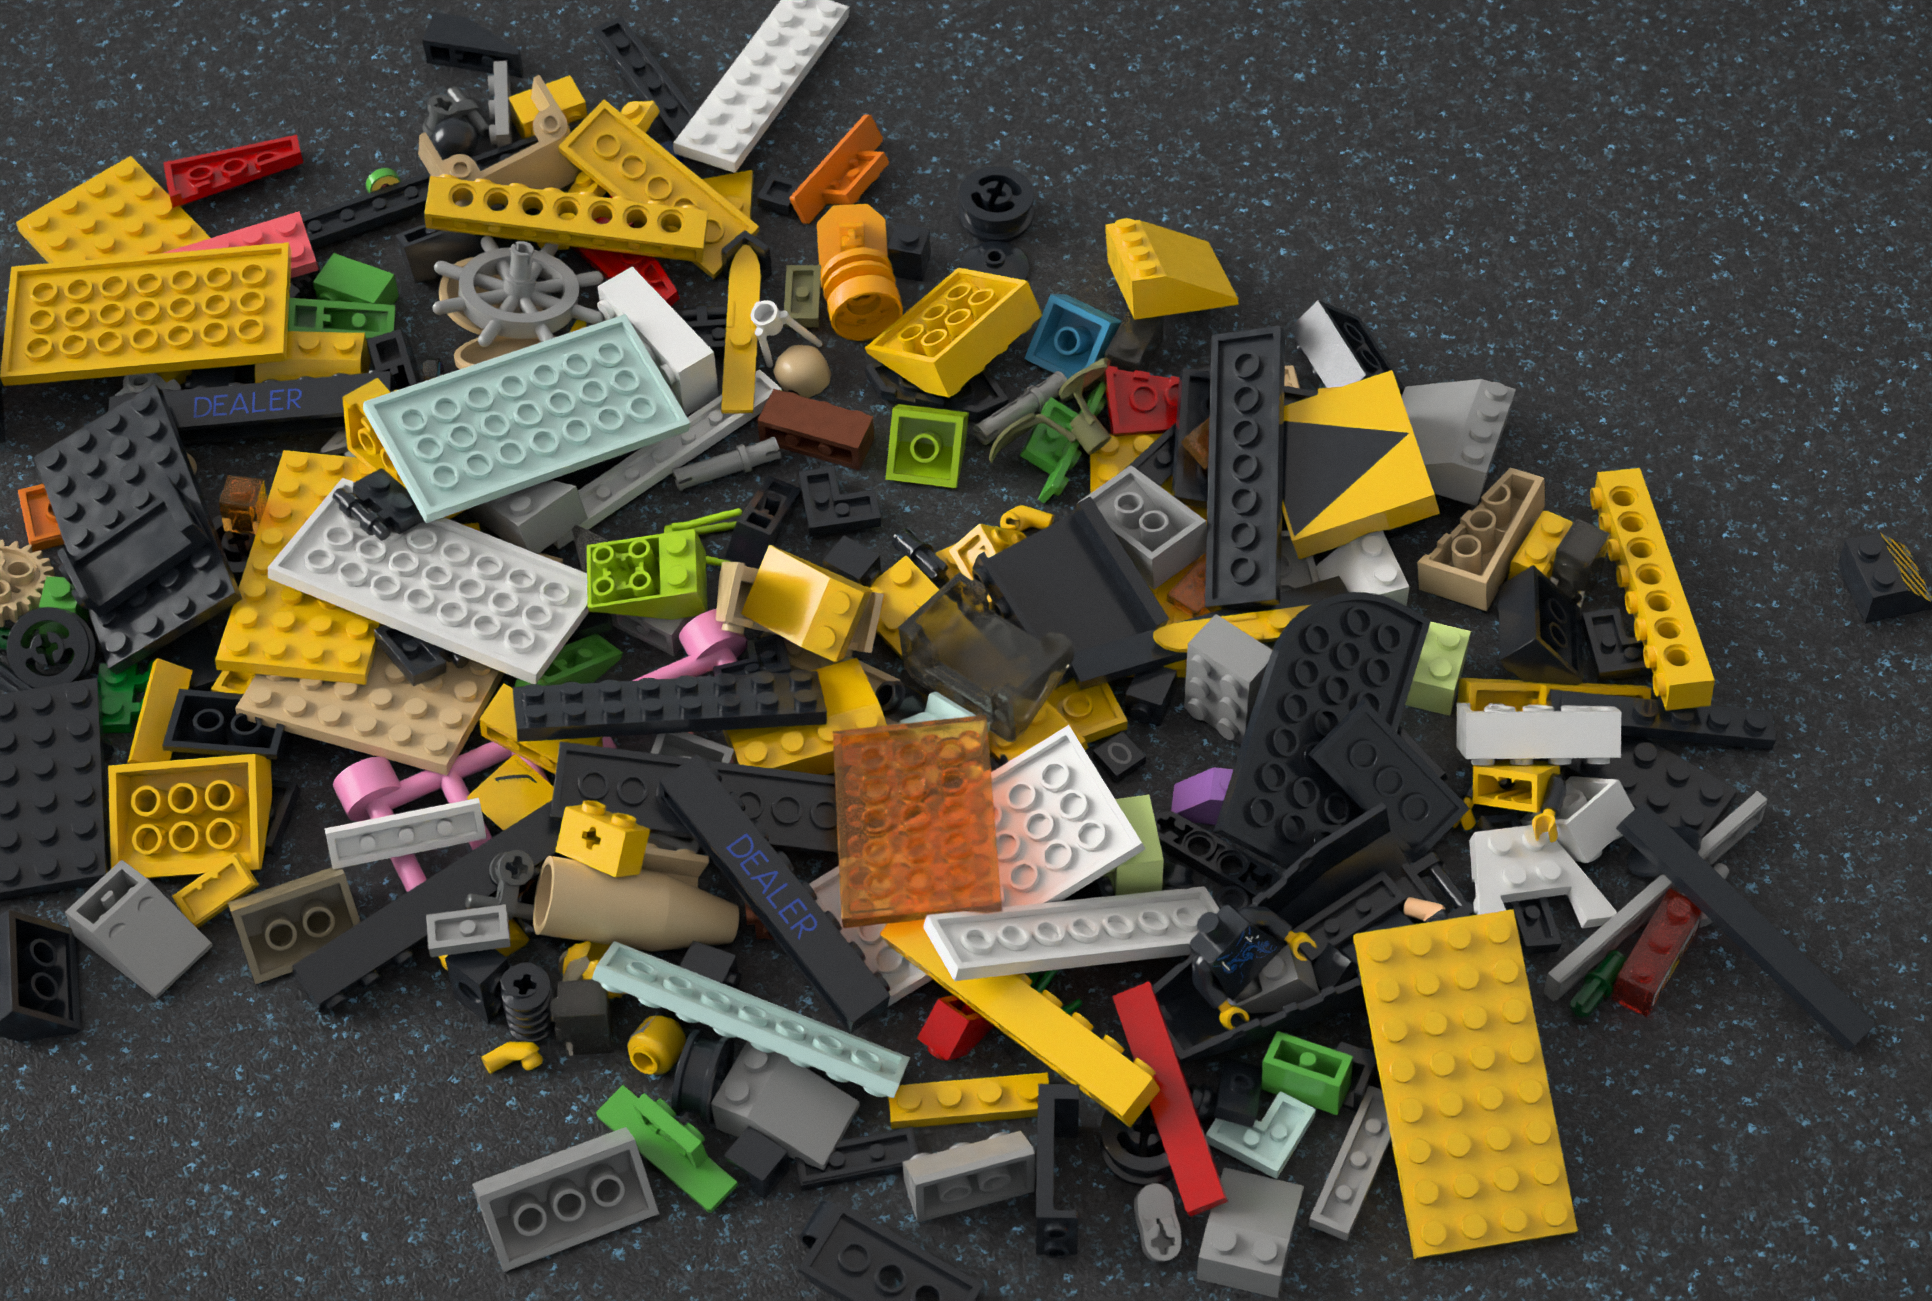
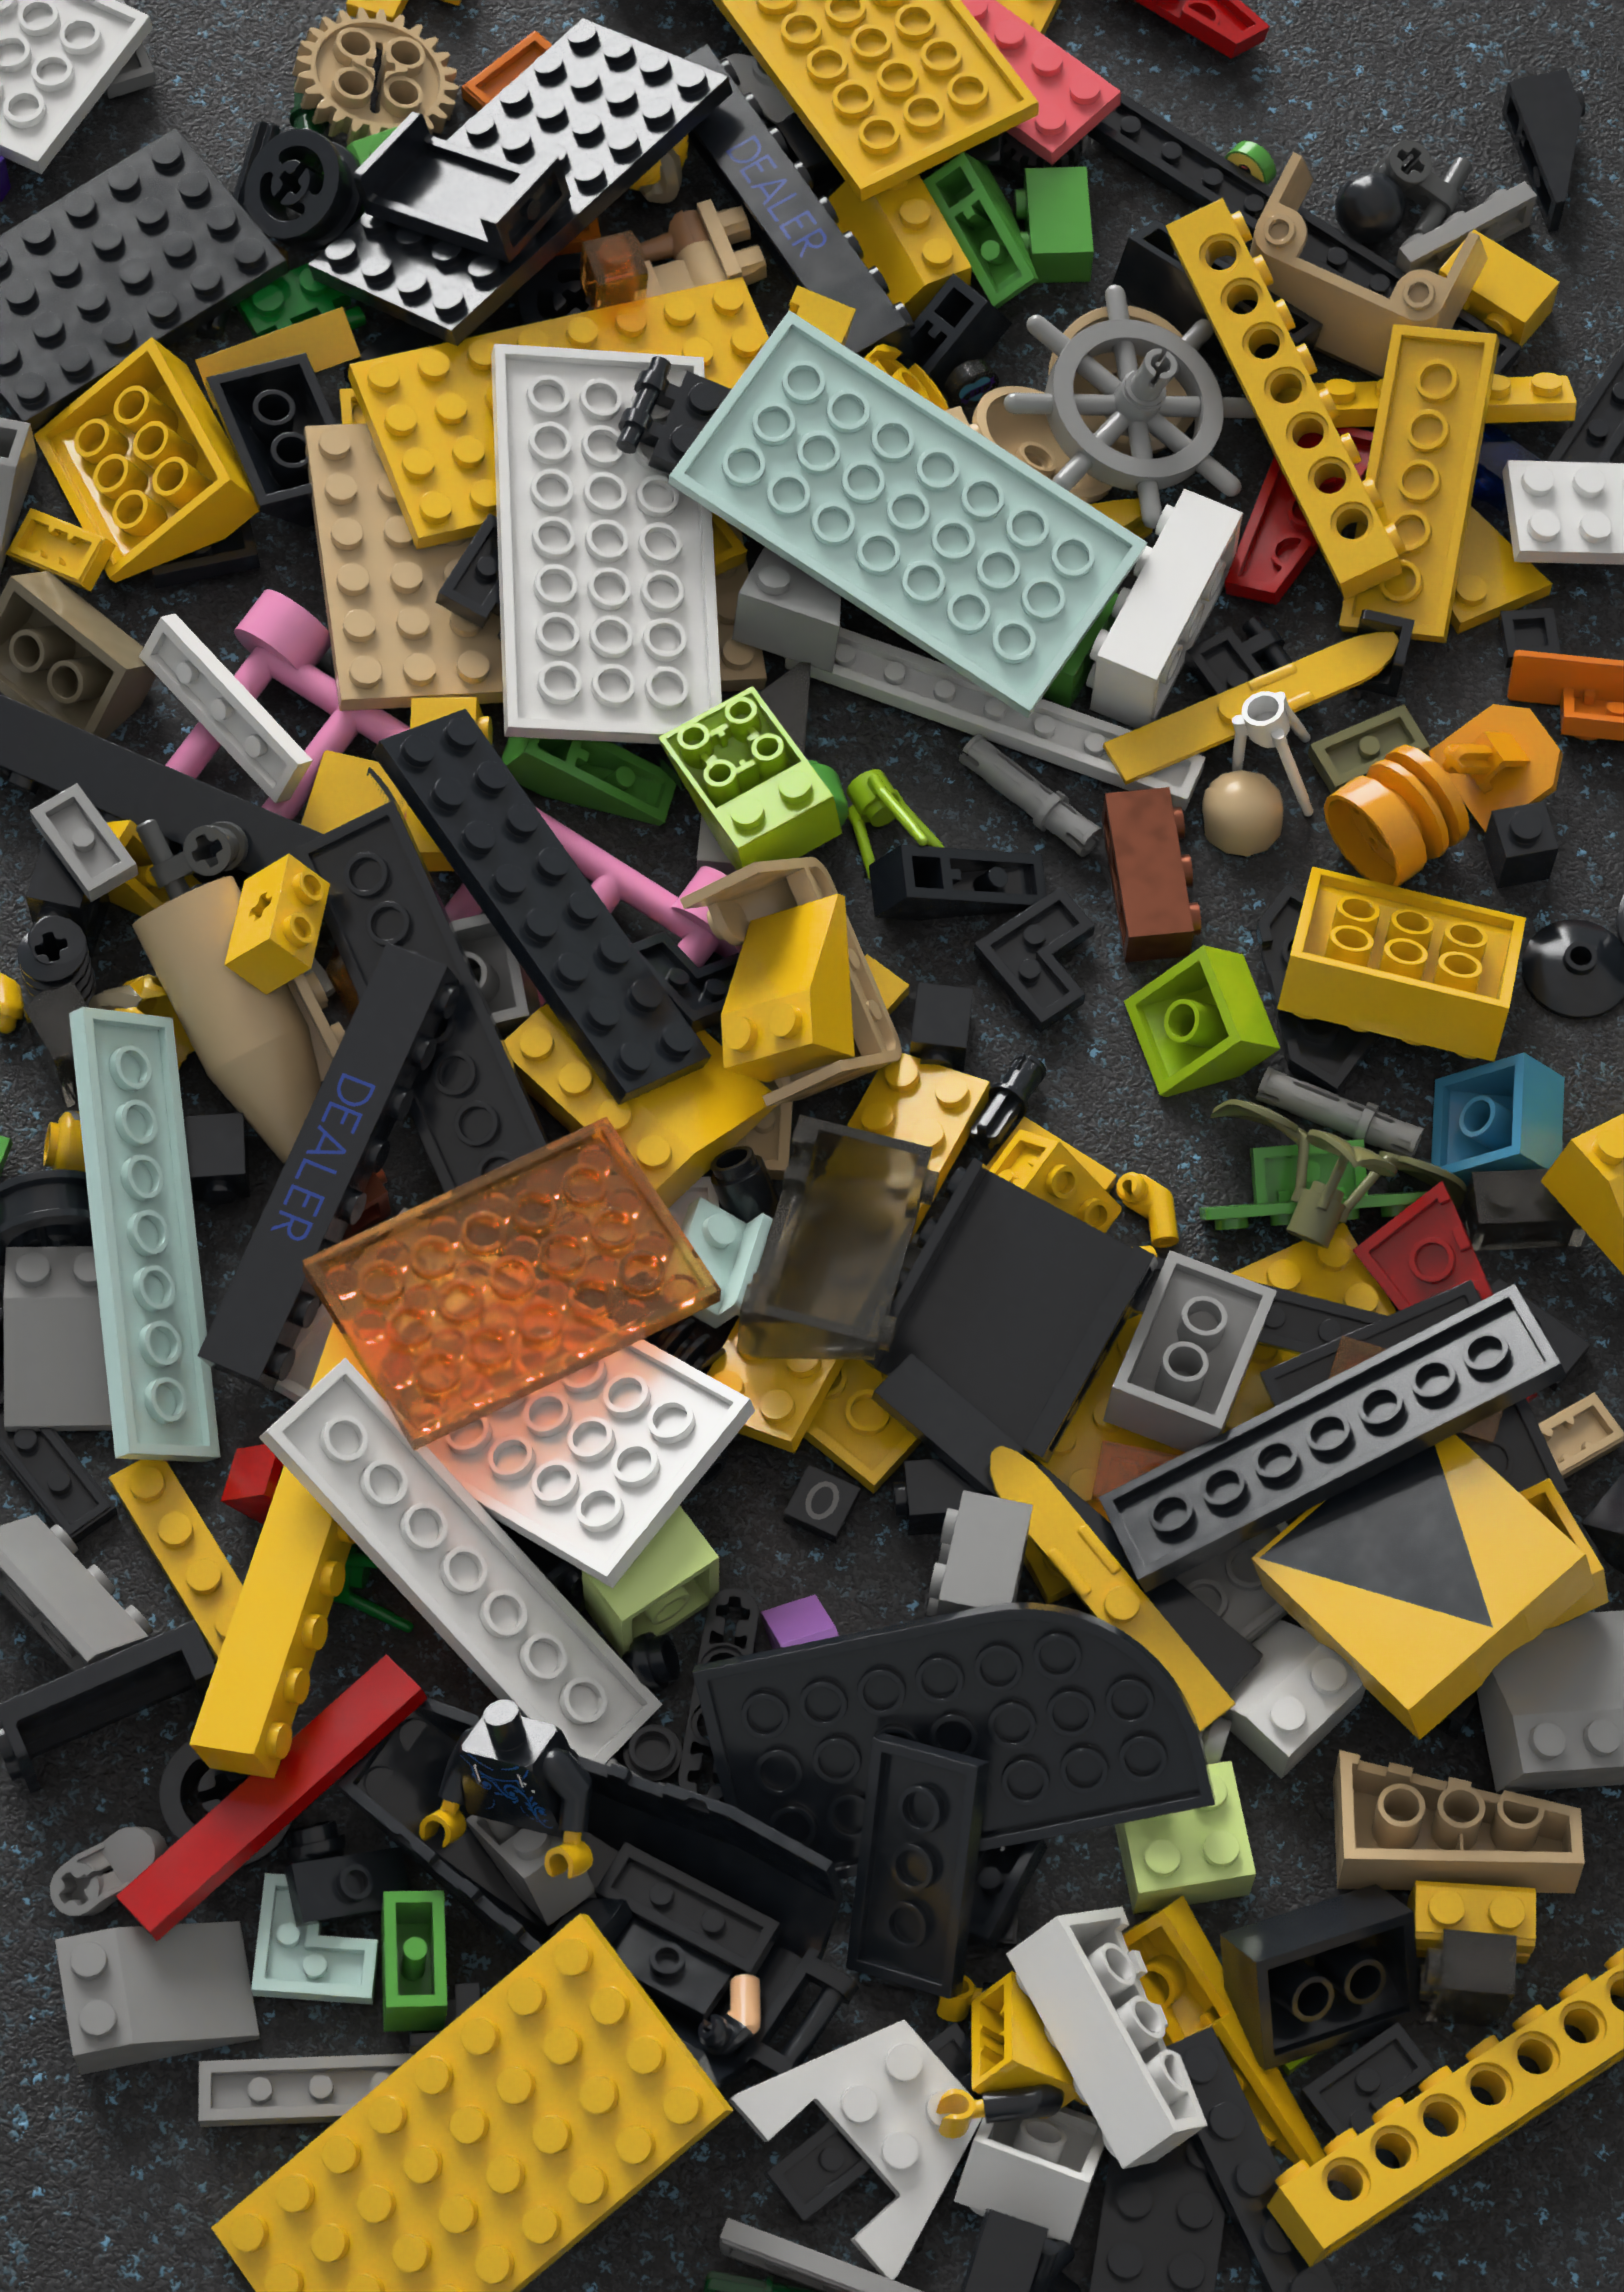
camera: 60 degrees right, 10 degrees up
(242, 459) = (702, 250): none -> tan hips

